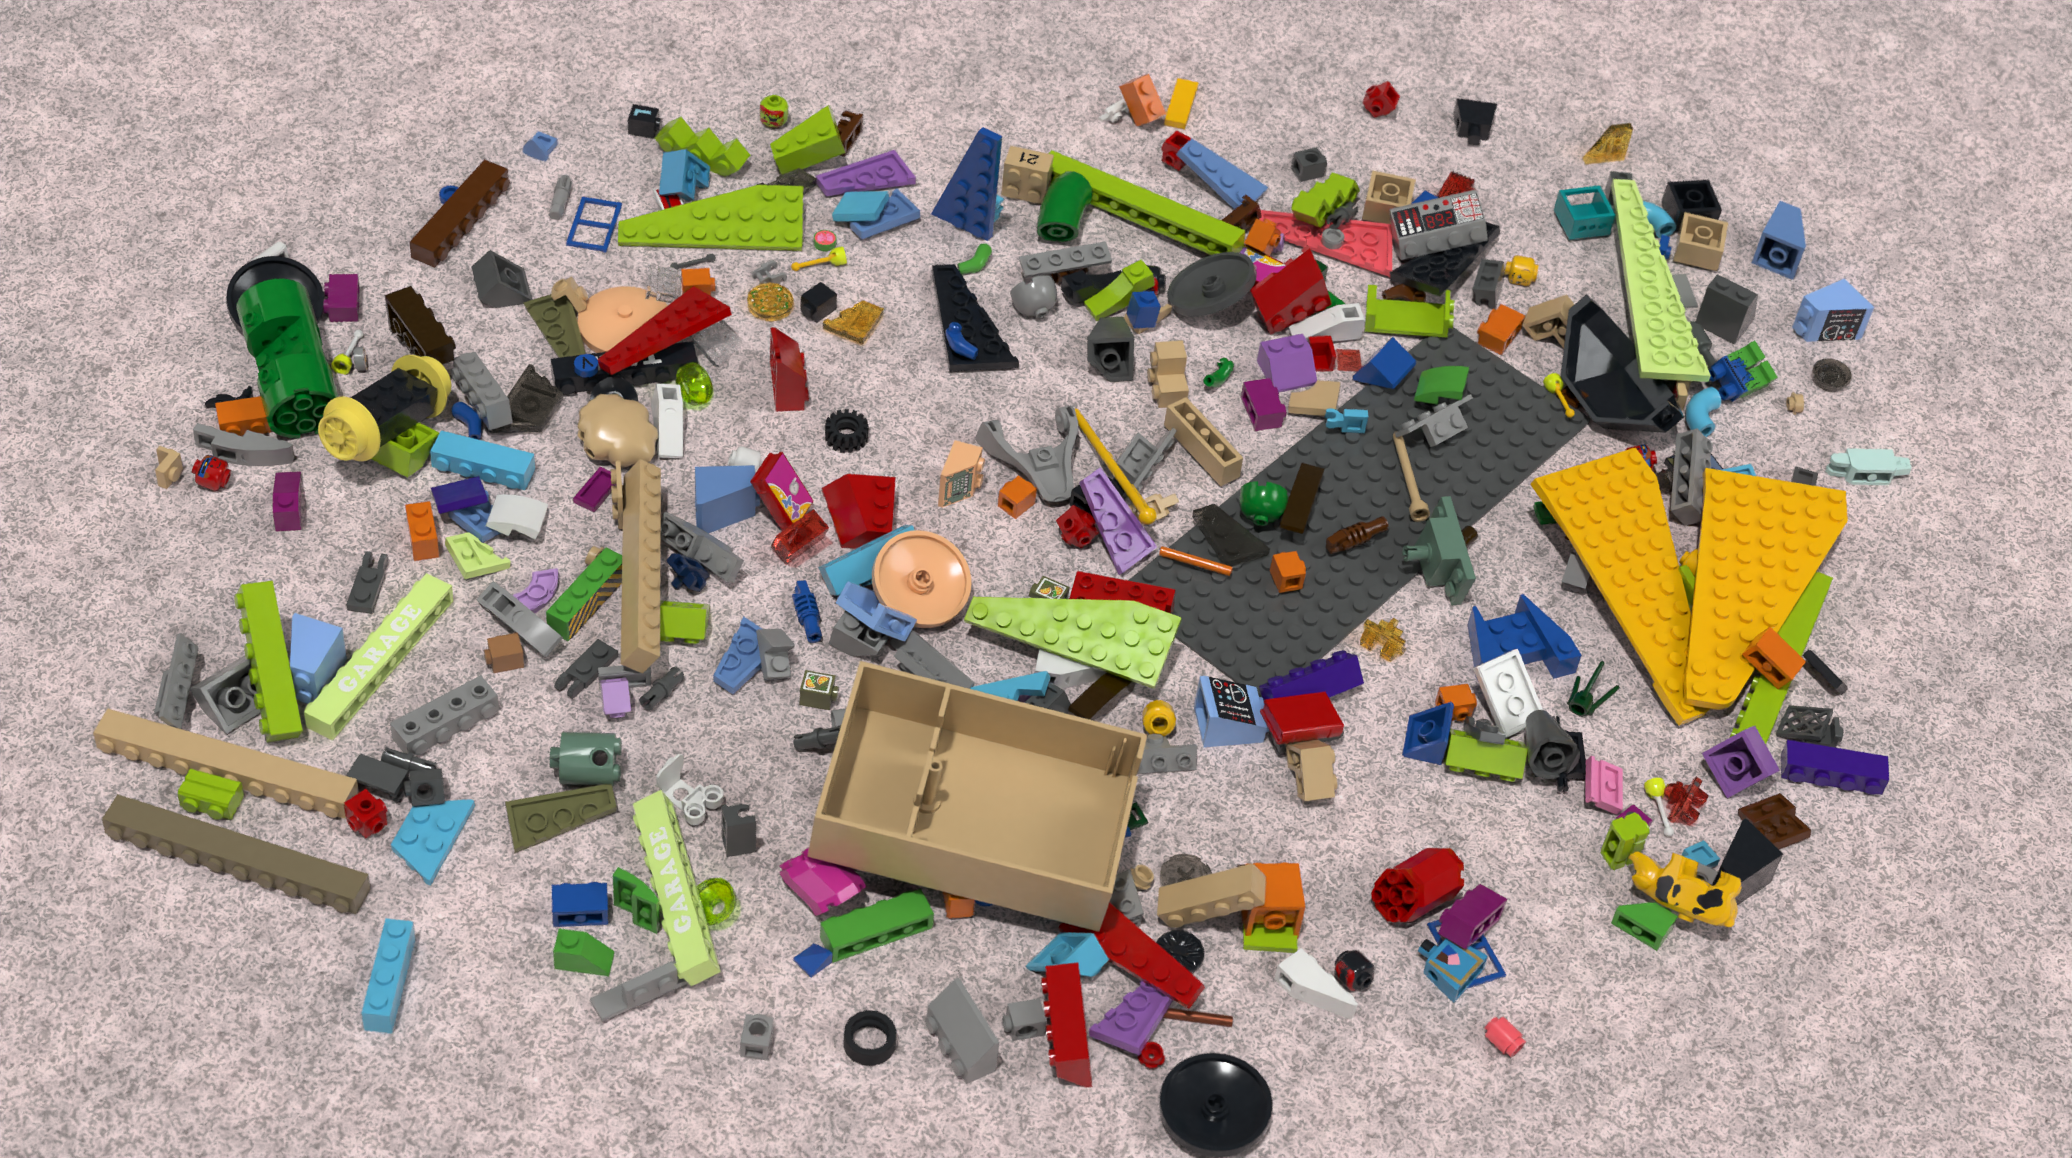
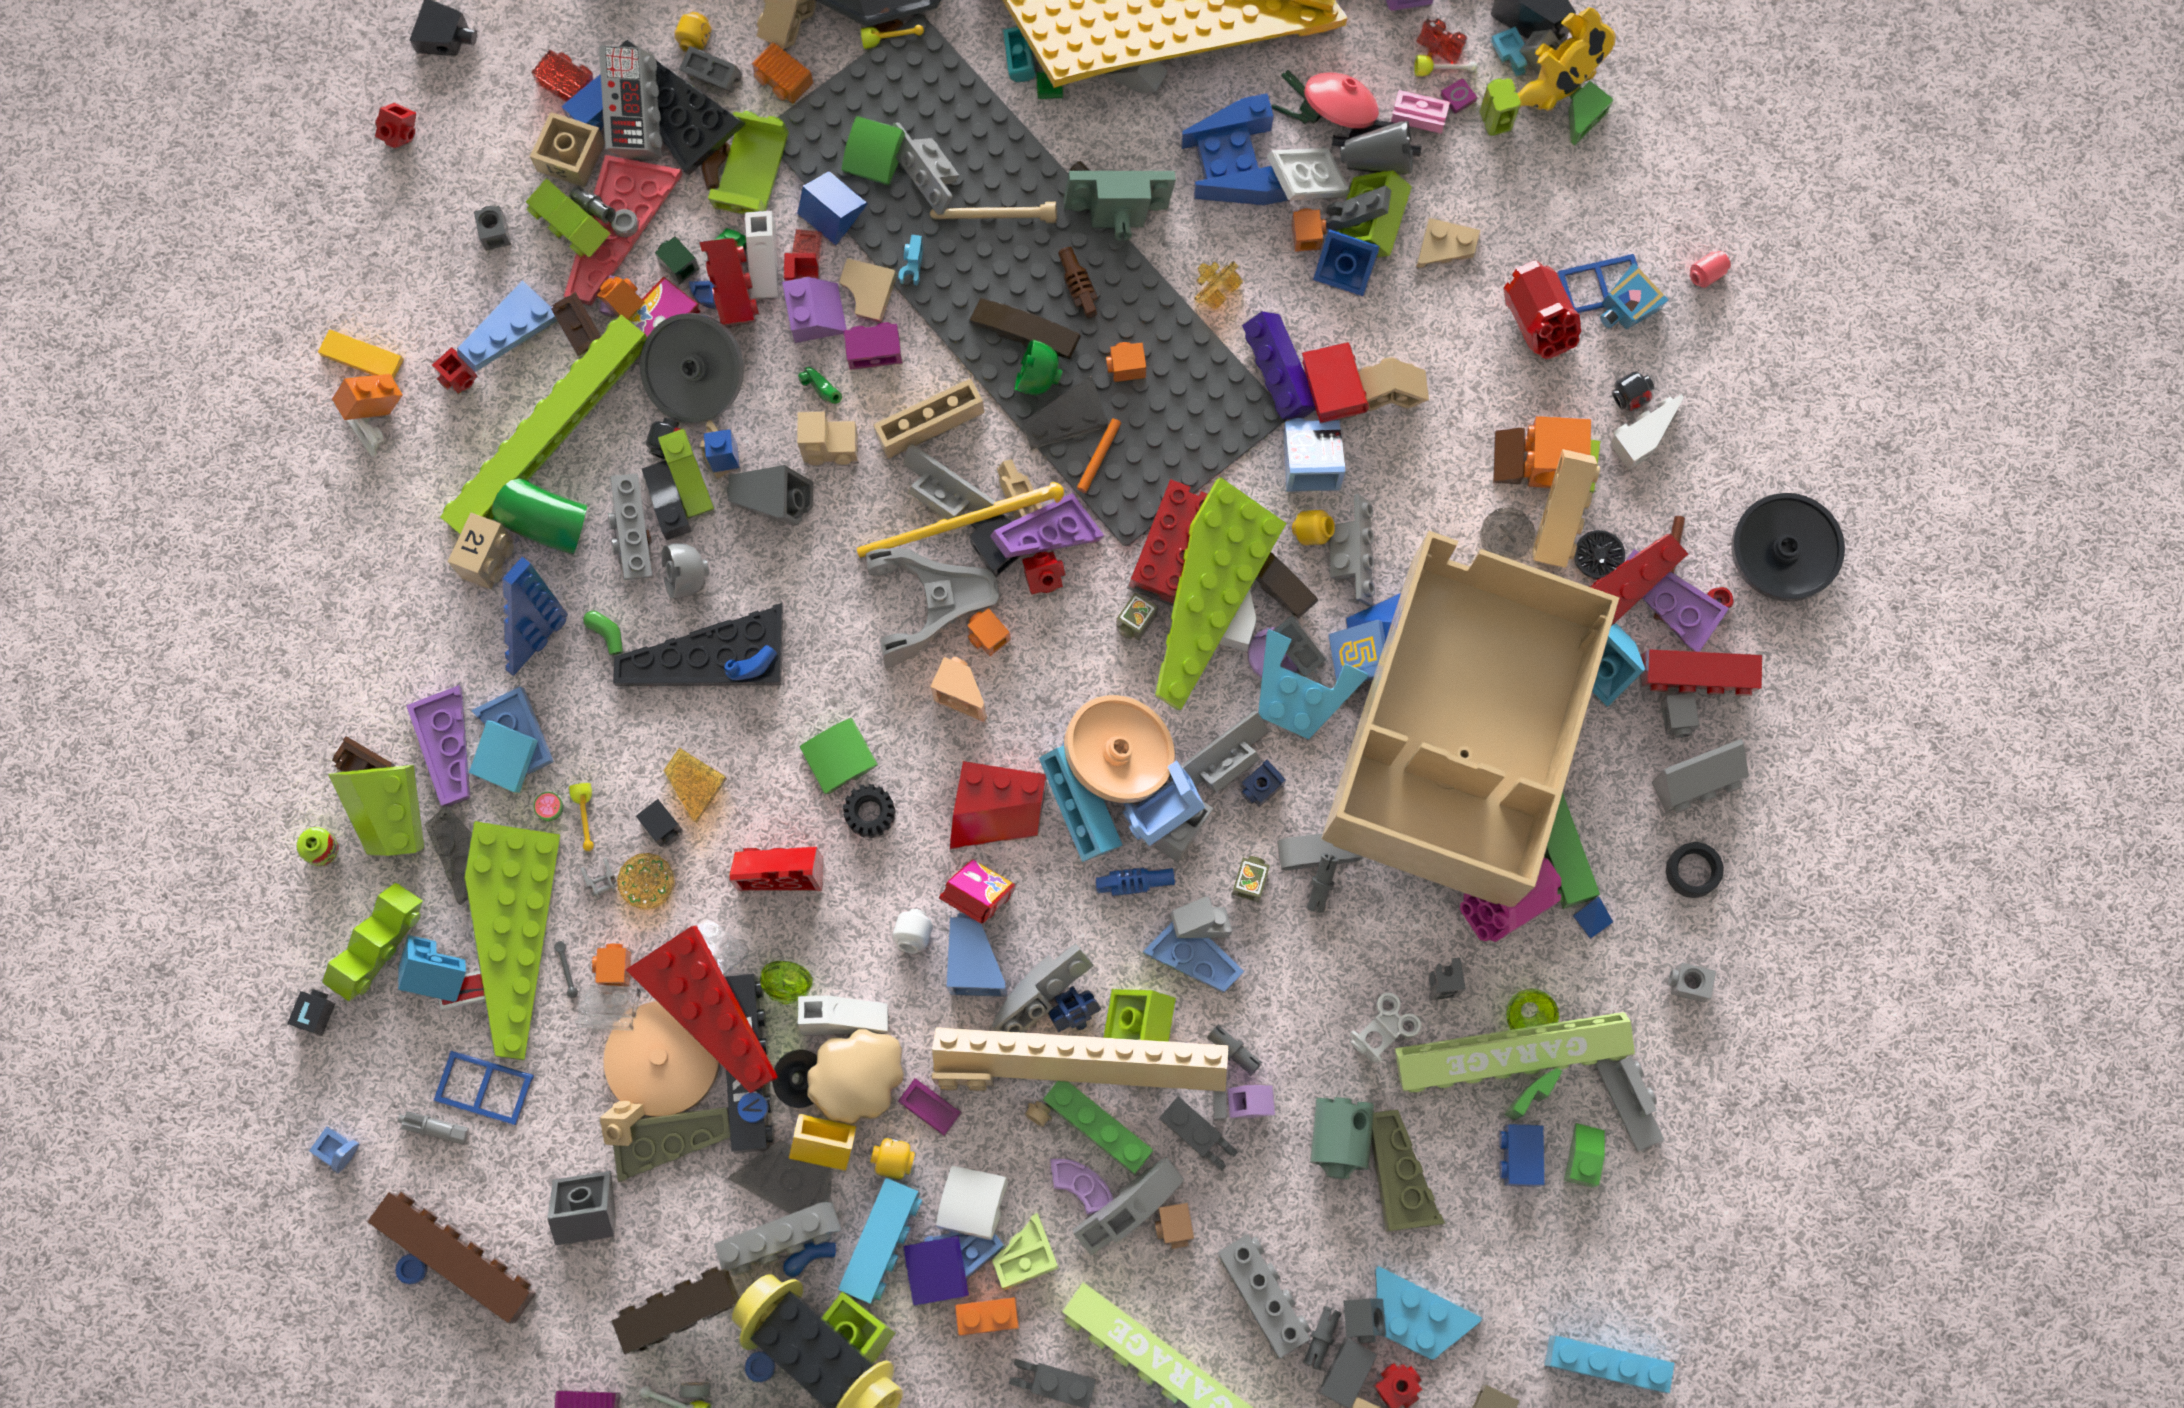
camera: 75 degrees left, 25 degrees up
(551, 463) = (892, 1158): none -> yellow head
(561, 413) = (822, 1142): none -> yellow brick
(799, 537) = (1036, 878): clear red brick -> none
(892, 409) = (838, 755): none -> bright green slope
(1471, 916) = (1585, 267): magenta brick -> none
(1474, 816) = (1447, 242): none -> tan wing
(1594, 717) = (1342, 100): none -> coral dish

